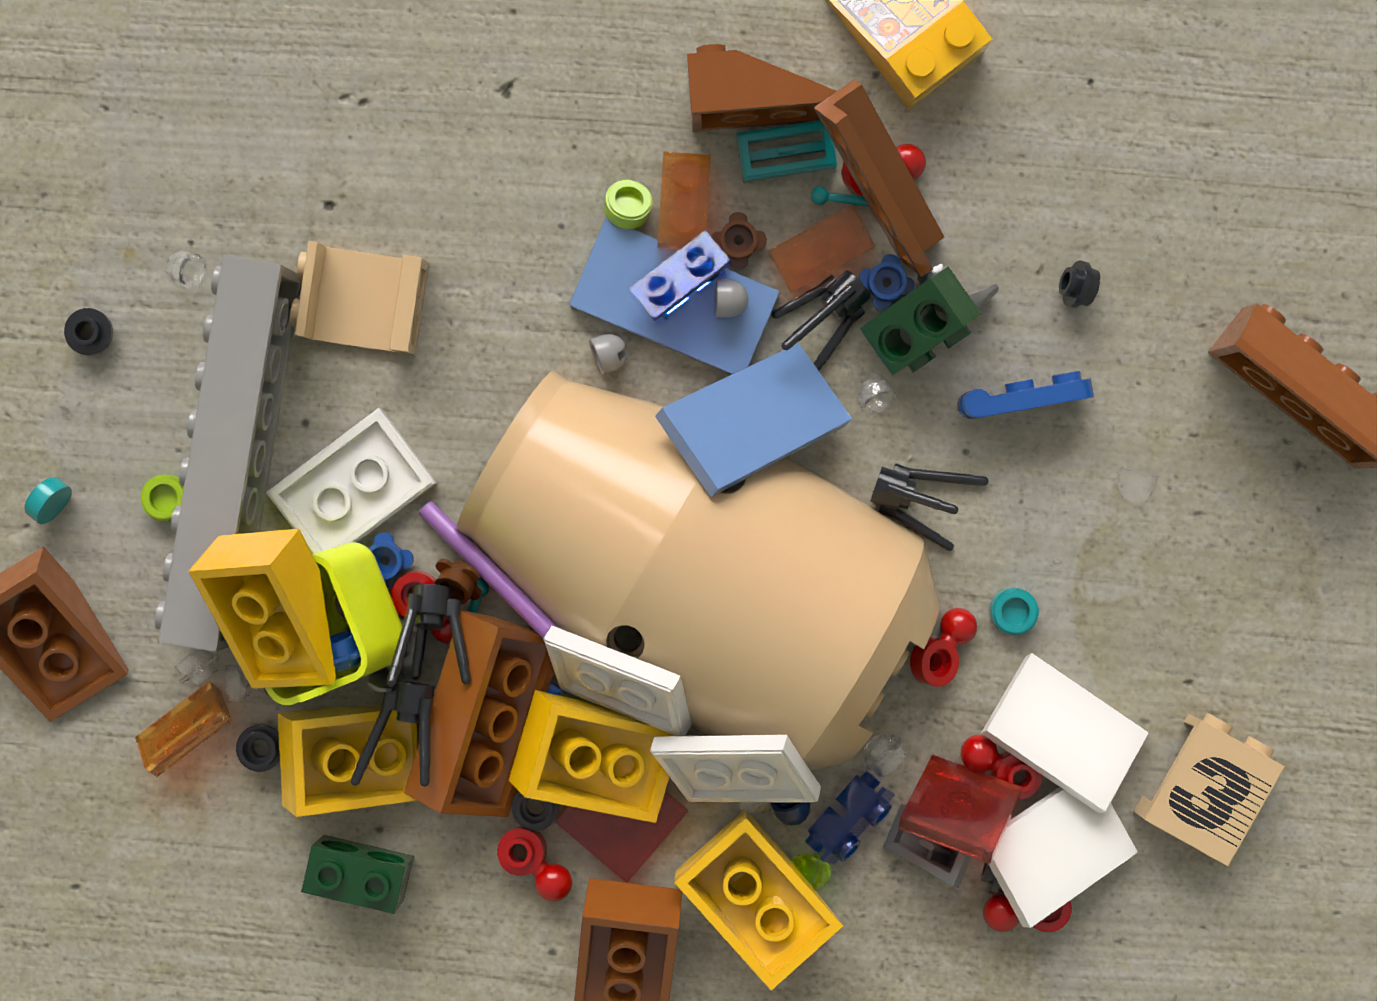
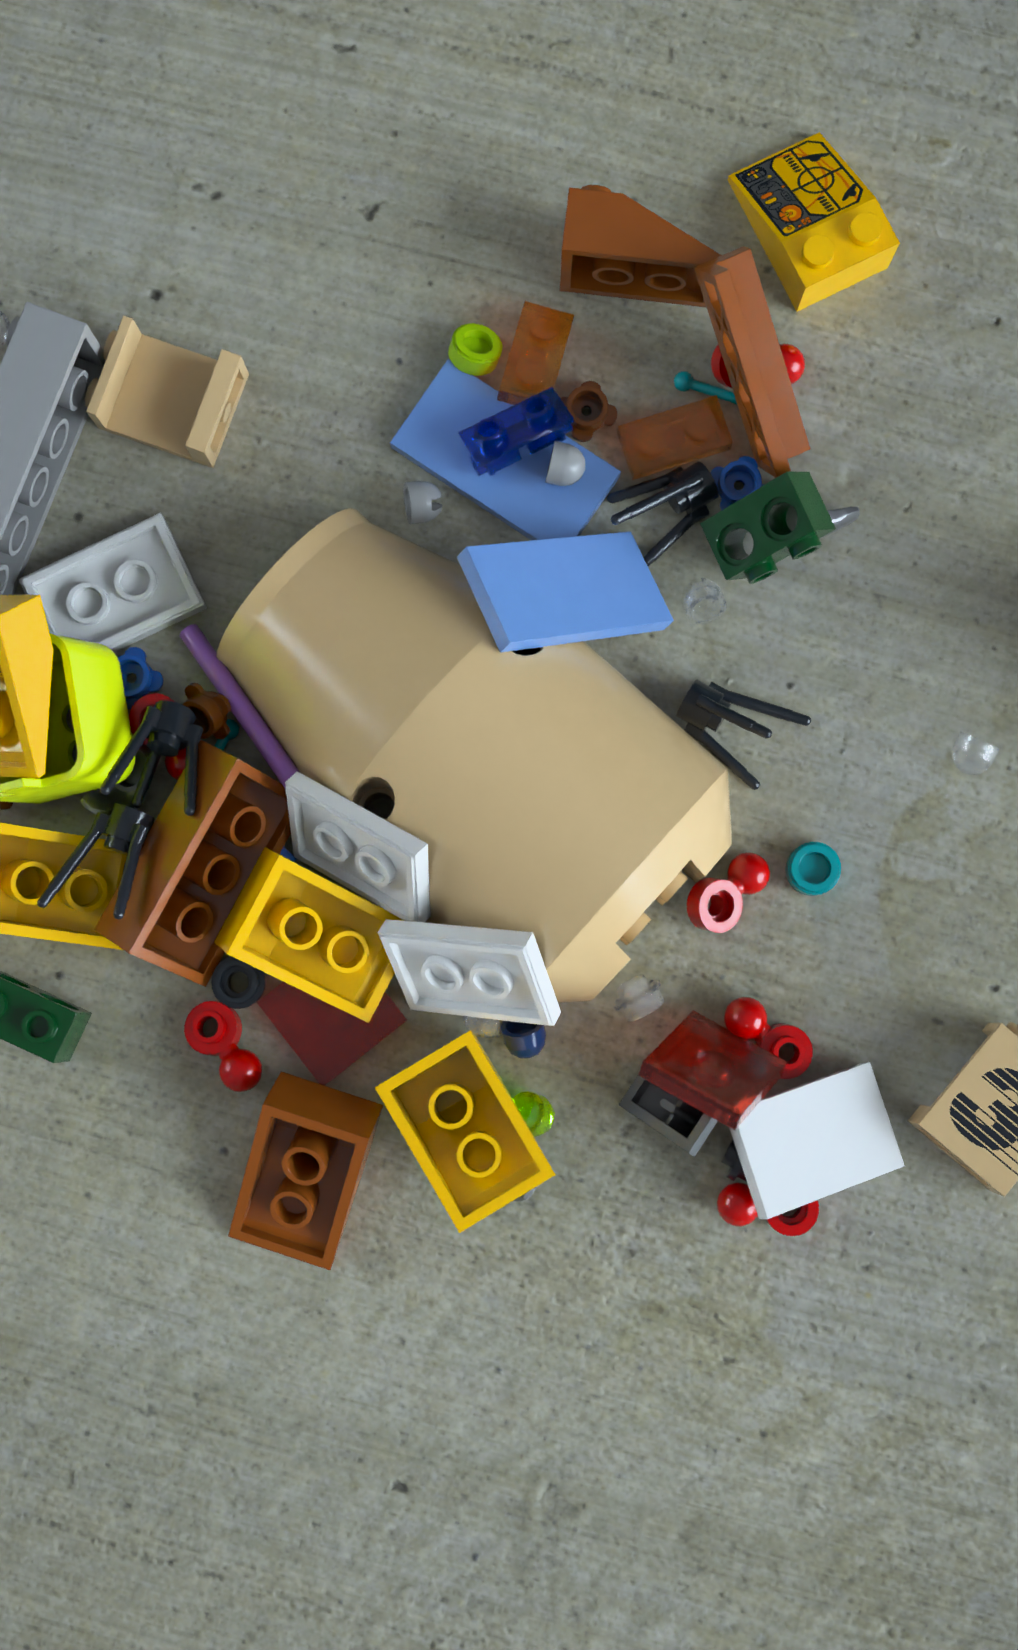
camera: 20 degrees right, 5 degrees down
(344, 651) = (61, 752): blue plate -> none
(787, 169) = (656, 347): teal tile -> none
(841, 834) = (570, 1081): clear blue hinge -> none
(1025, 396) = (867, 634): blue plate -> none
(1065, 733) = (846, 1013): white tile -> none
(1079, 284) = (948, 526): black plate -> none

